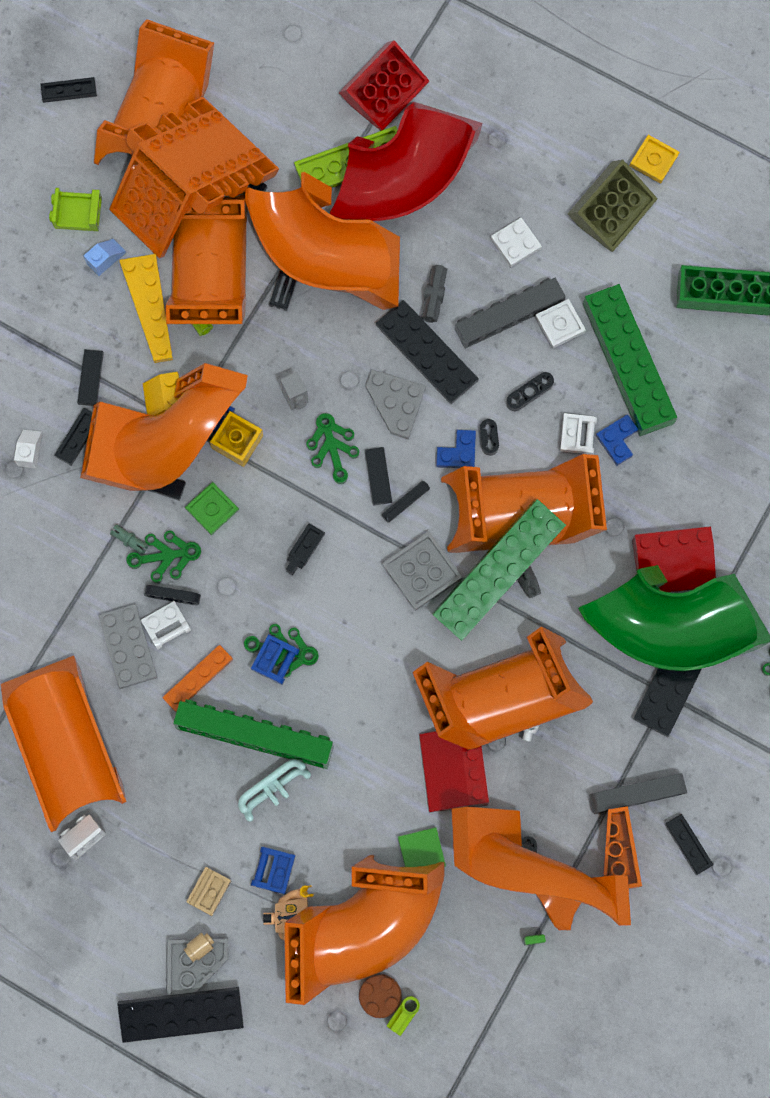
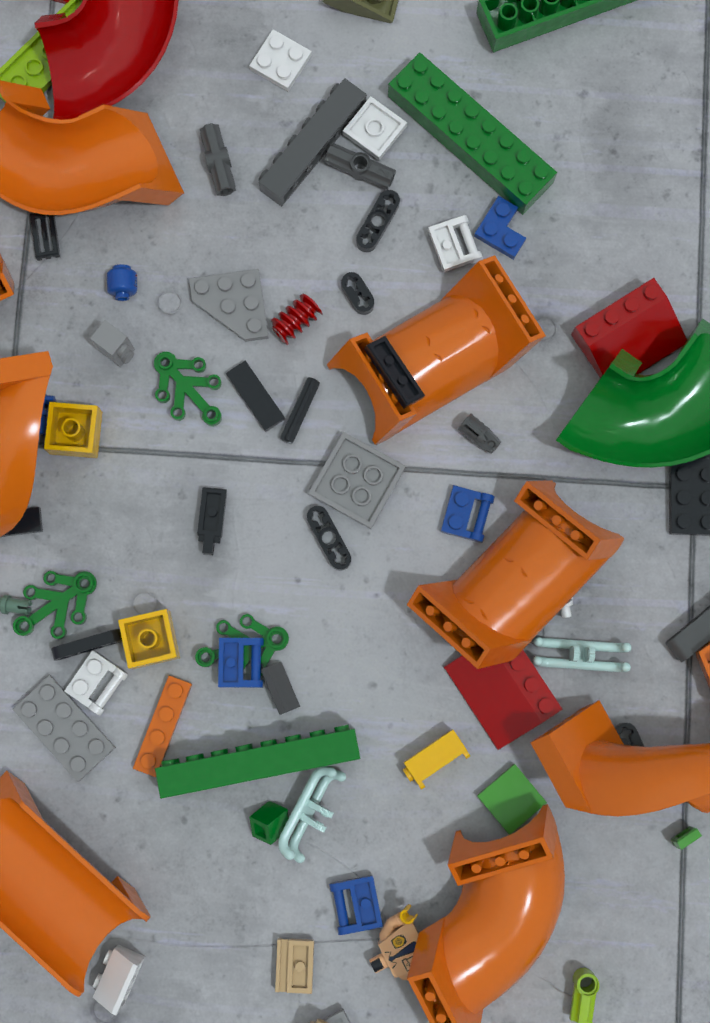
camera: 25 degrees left, 5 degrees up
(211, 508) = (84, 522): bright green tile -> none
(218, 611) = (149, 639): none -> yellow brick
(239, 781) = (268, 822): none -> green panel
(294, 691) = (280, 688): none -> dark grey tile
(322, 350) = (121, 282): none -> blue head
(380, 793) = (434, 757): none -> yellow brick
(380, 996) = (546, 987): dark orange piece -> none
(387, 616) = (315, 525): none -> black beam
(427, 352) = (241, 229): black plate -> none
(434, 433) = (295, 318): none -> red piece
(461, 455) = (337, 329): blue plate -> none
(484, 504) = (394, 372): none -> black tile
(486, 628) = (459, 512): none -> blue plate
(498, 569) = (444, 438): green brick -> none
(522, 773) = (581, 654): none -> light aqua piece
(542, 355) = (373, 172): none -> dark grey piece

